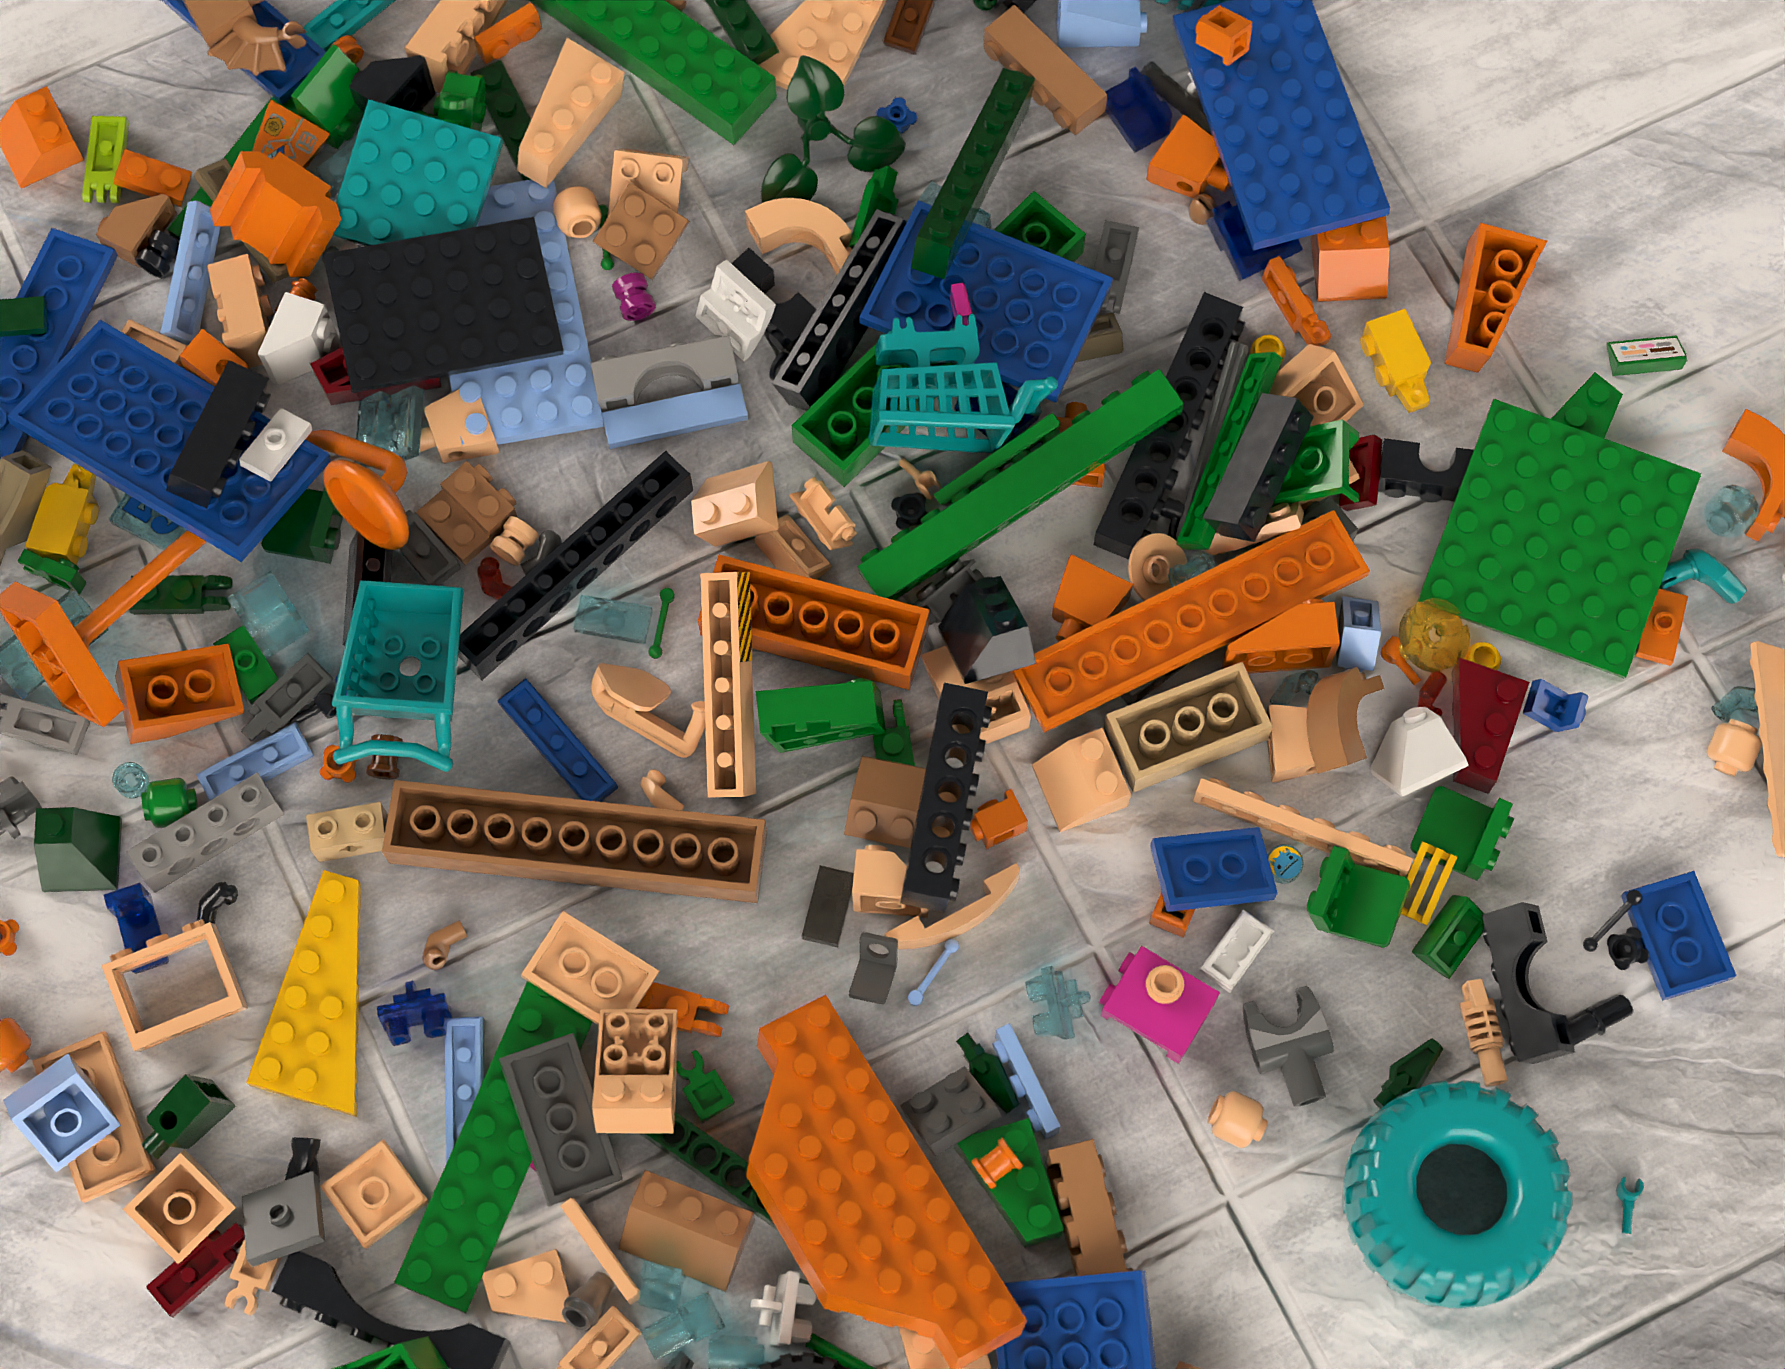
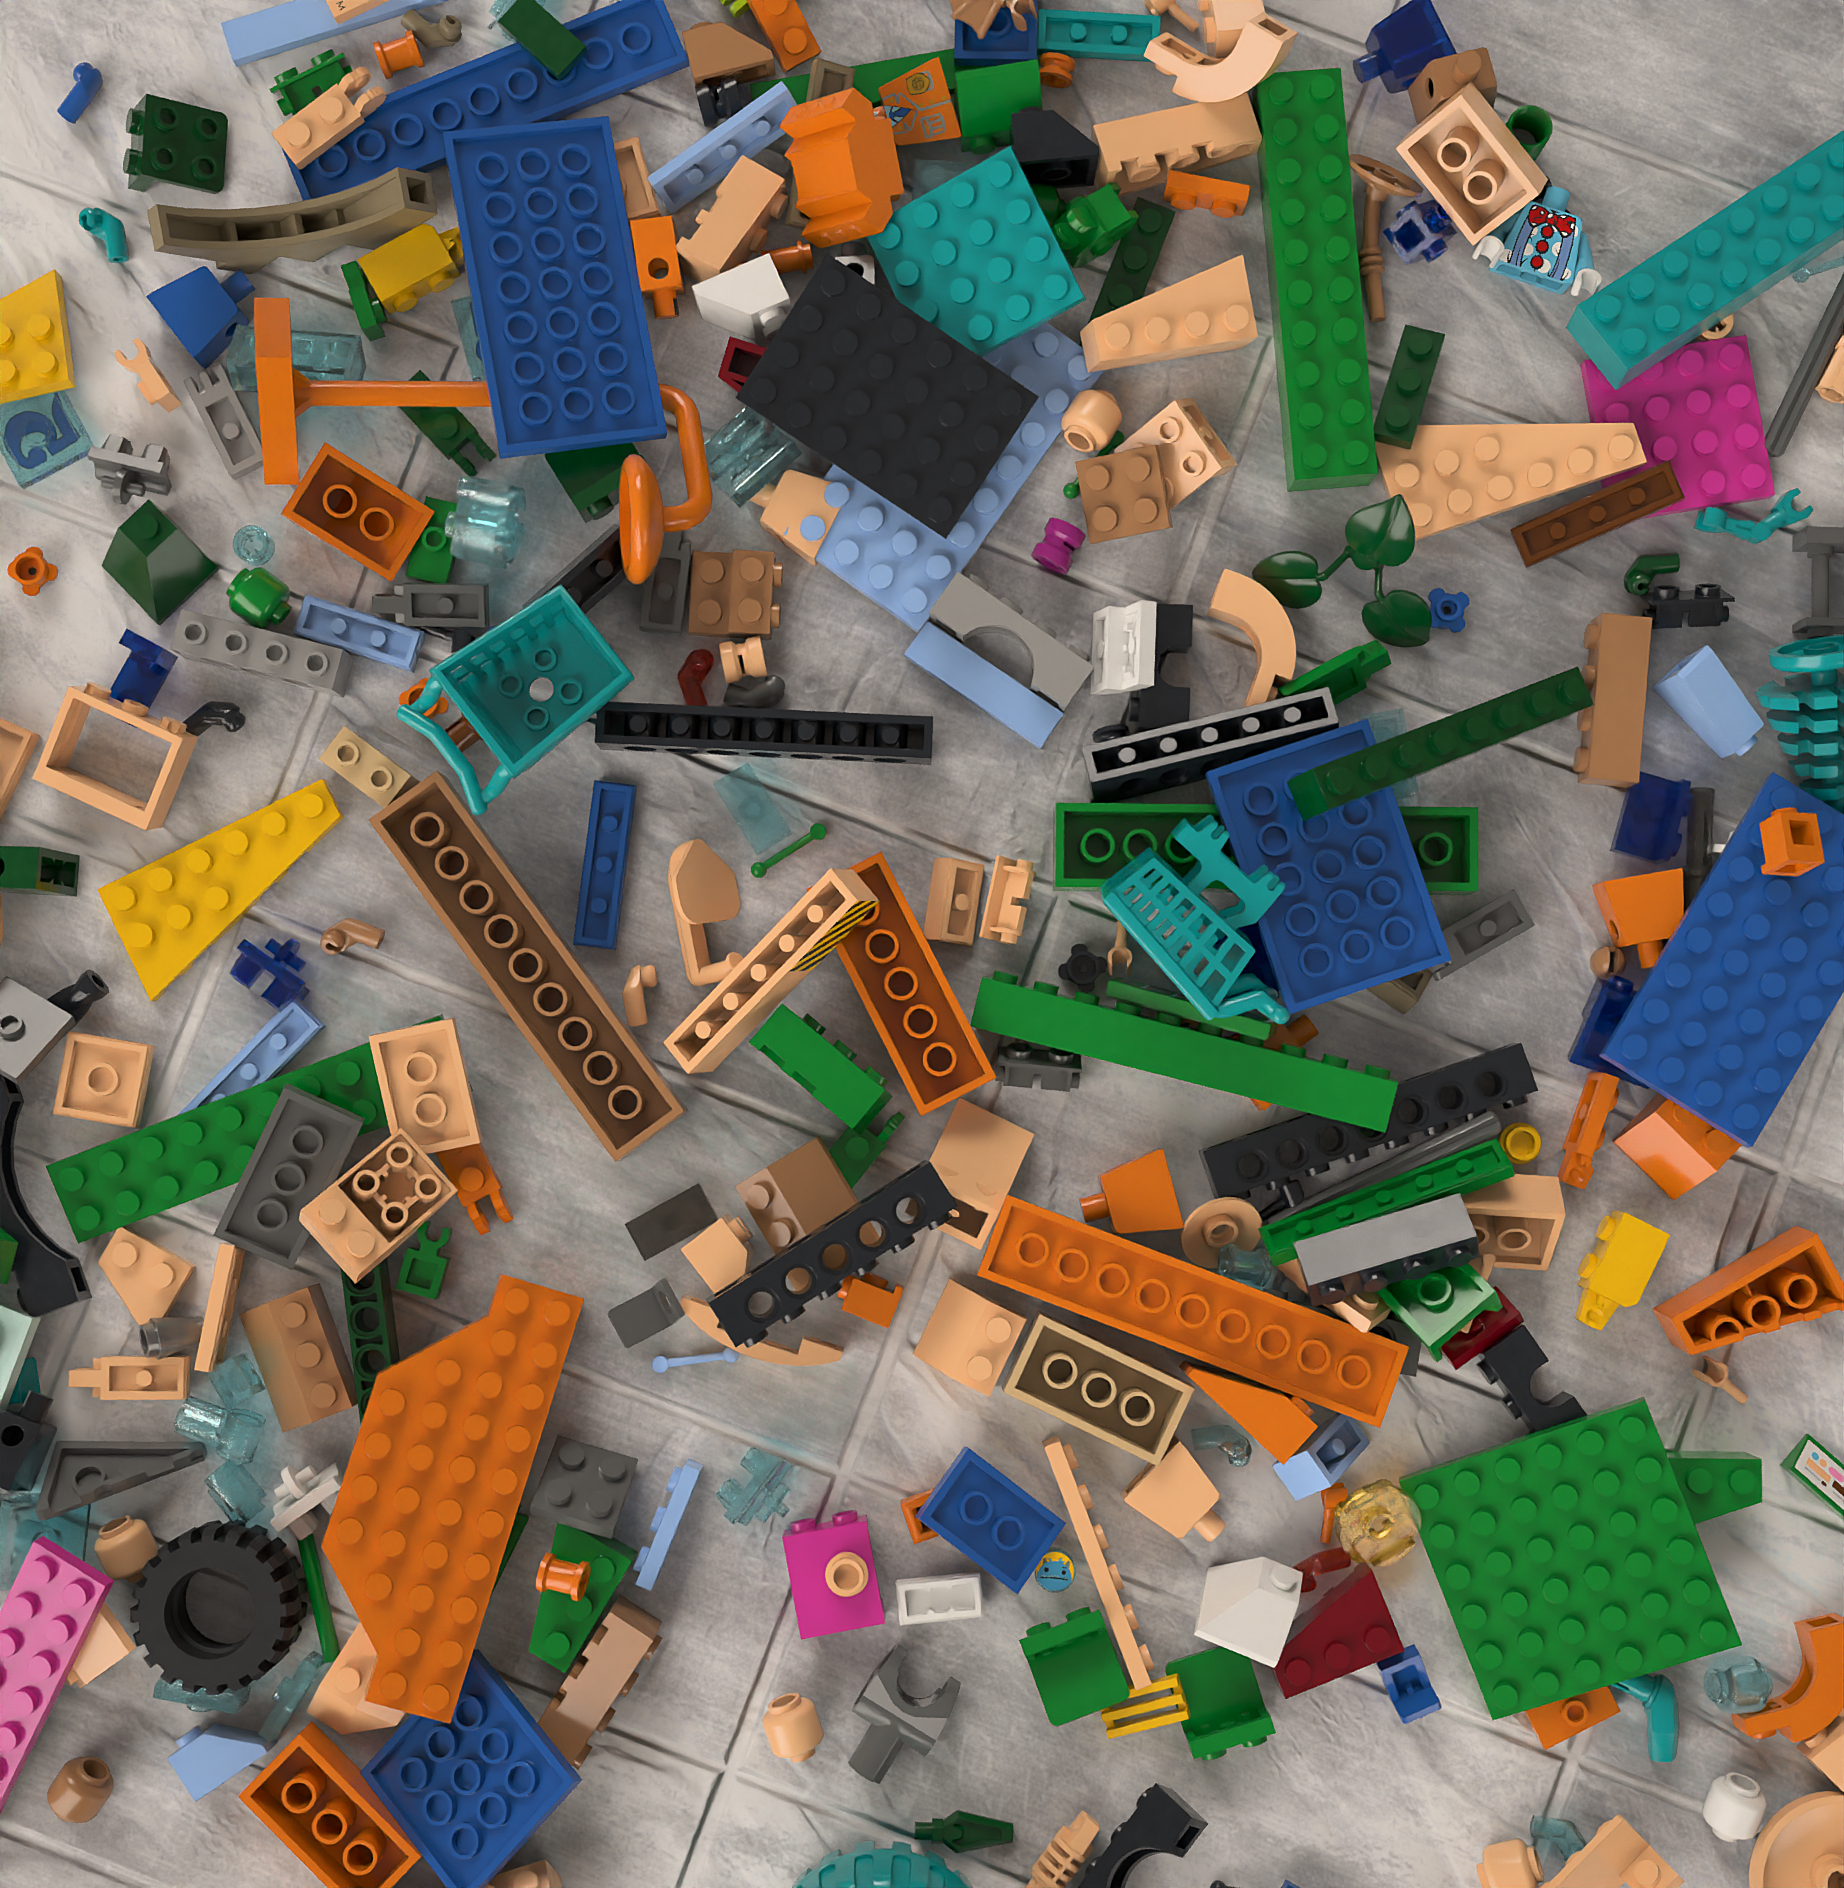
camera: 45 degrees right, 15 degrees up
(218, 434) = (586, 328): black brick -> none
(275, 444) = (629, 382): white plate -> none
(736, 505) = (947, 816): light nougat slope -> none
(960, 302) = (1294, 856): dark pink tile -> none
(986, 631) = (1019, 1144): black slope -> none
(989, 1073) = (649, 1483): dark green piece -> none
(1333, 718) = (1214, 1513): medium nougat arch -> none
(1450, 935) = (1119, 1763): green slope -> none
(1485, 655) = (1397, 1582): yellow plate -> none
(1520, 360) = (1717, 1377): none -> light nougat hand

